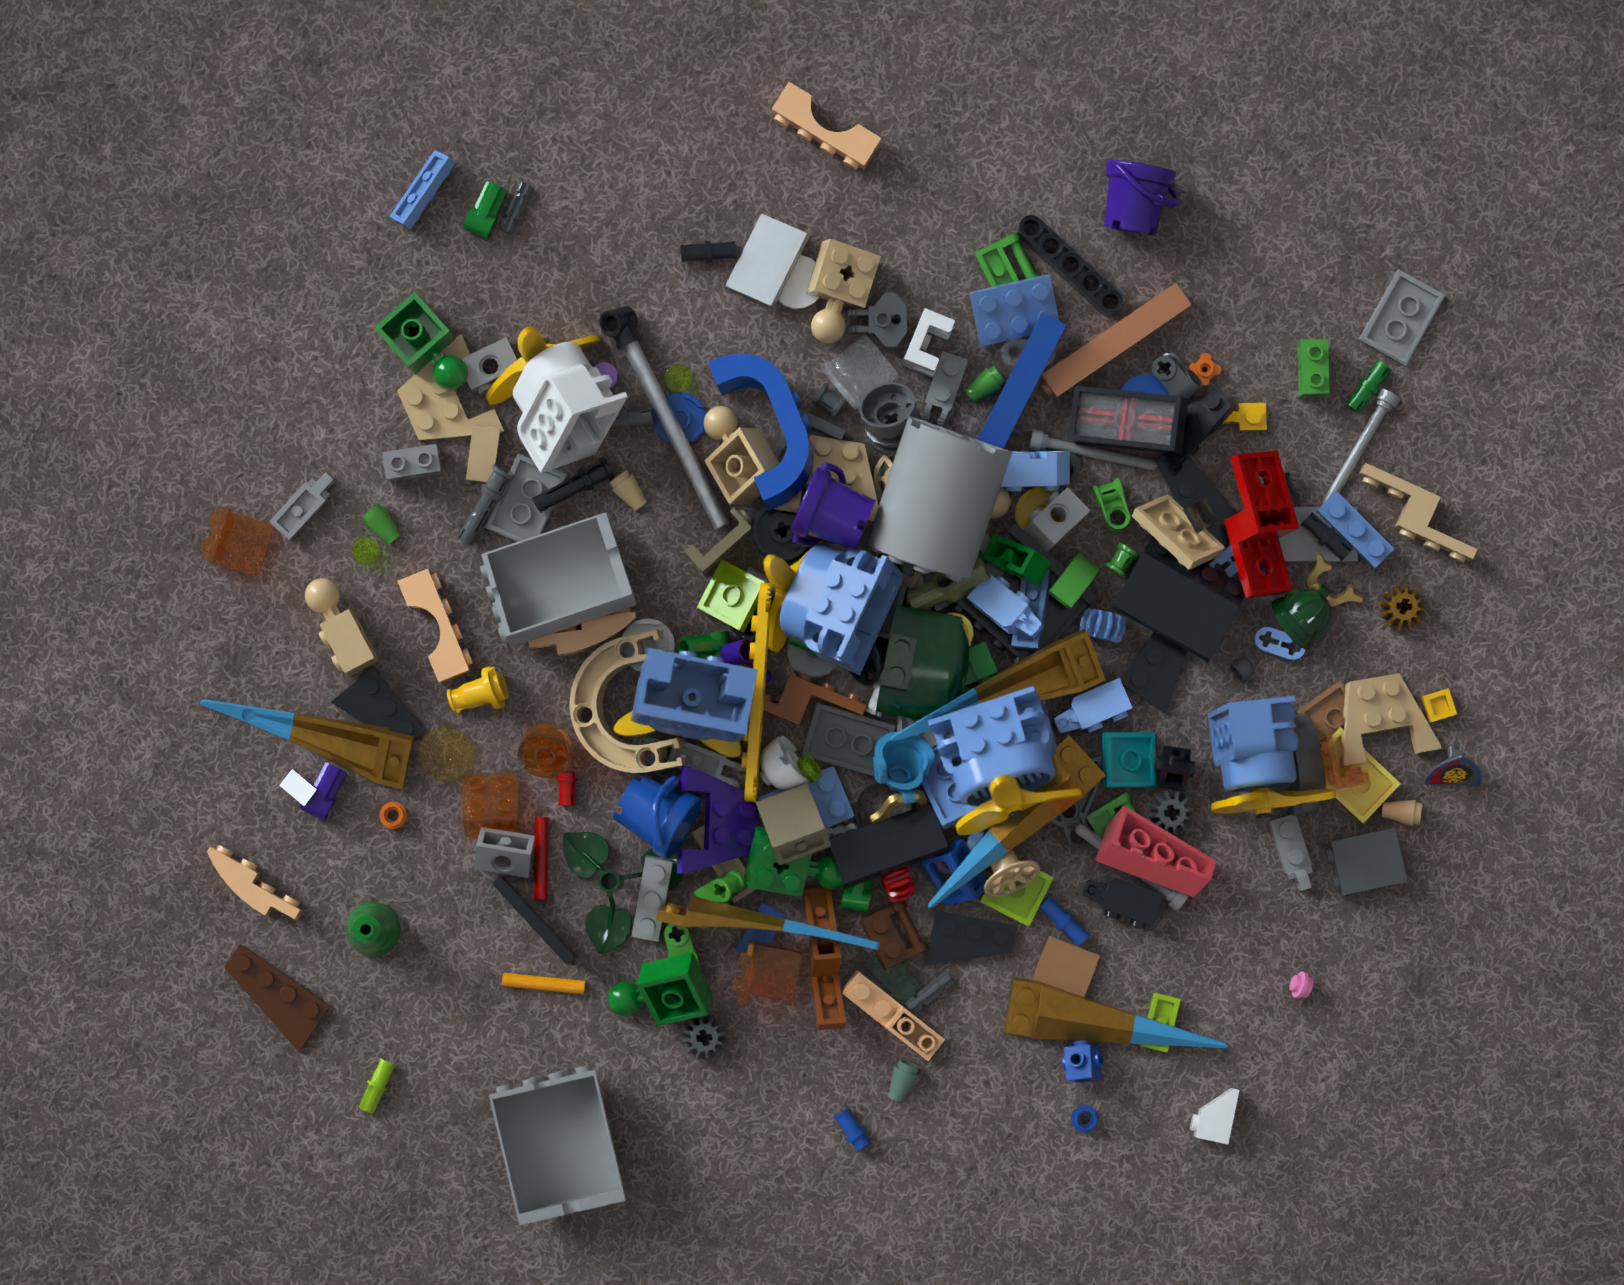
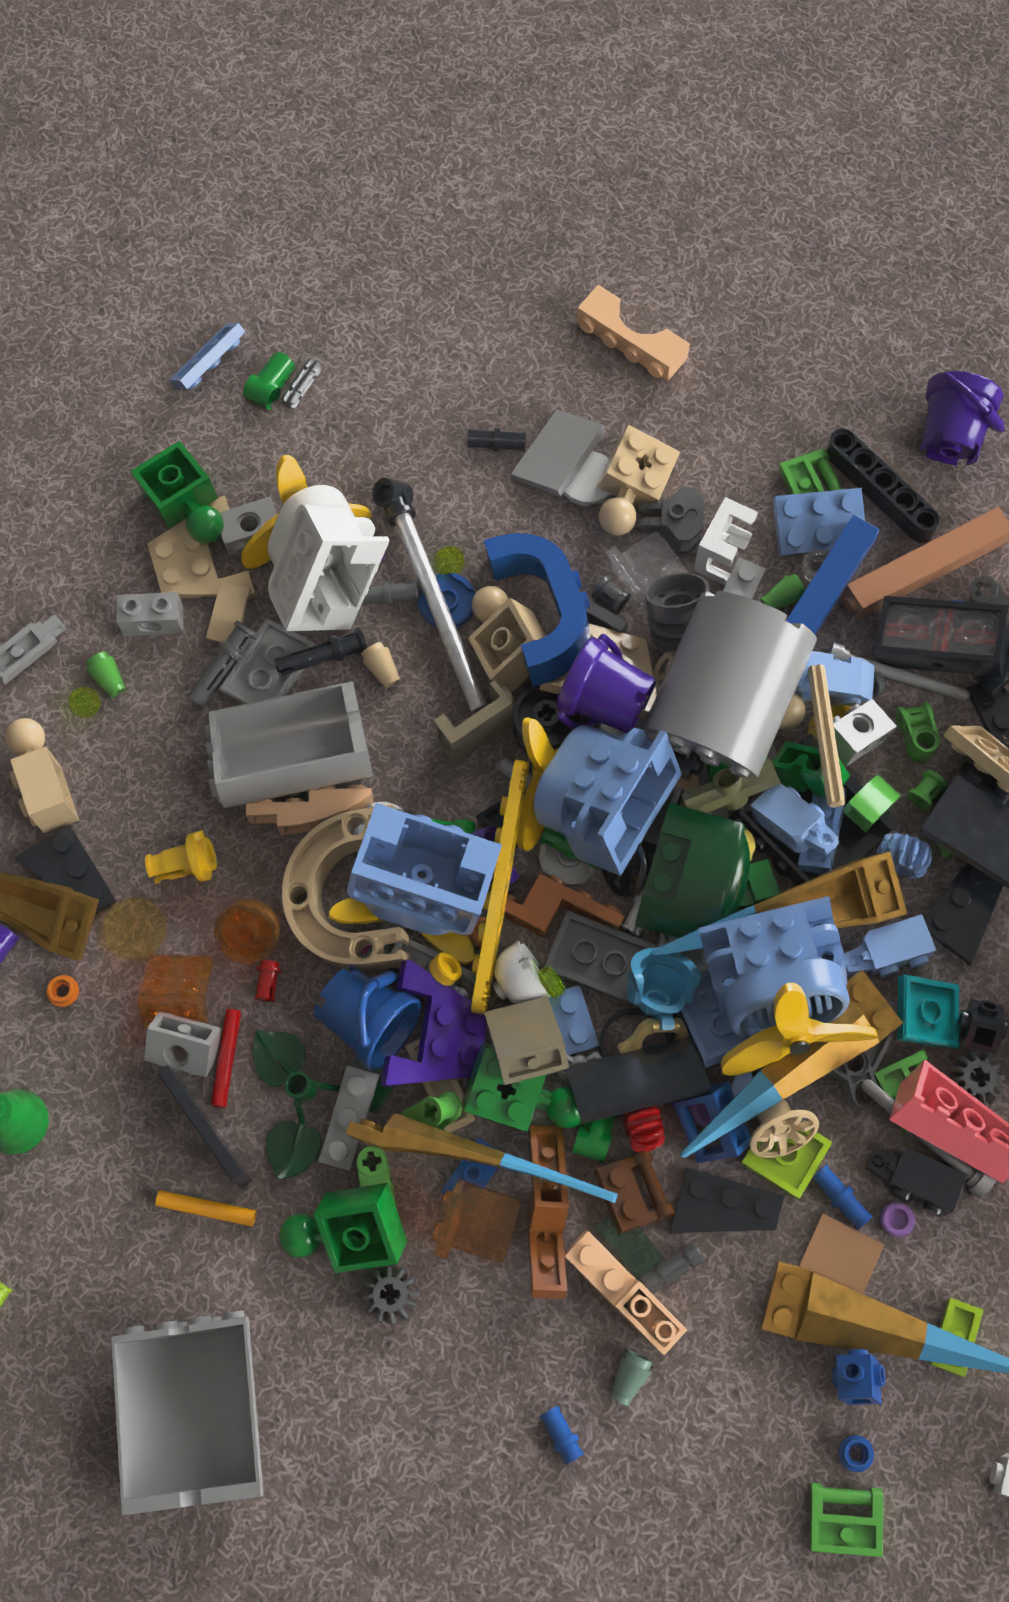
camera: 10 degrees right, 15 degrees down
(448, 658) = (153, 820): light nougat arch -> none
(718, 767) = (445, 969): none -> yellow tile
(731, 595) = (480, 783): lime plate -> none
(1025, 536) = (826, 736): none -> tan axle
(1079, 1178) = (845, 1532): none -> bright green plate
(1110, 933) = (897, 1219): none -> medium lavender tile

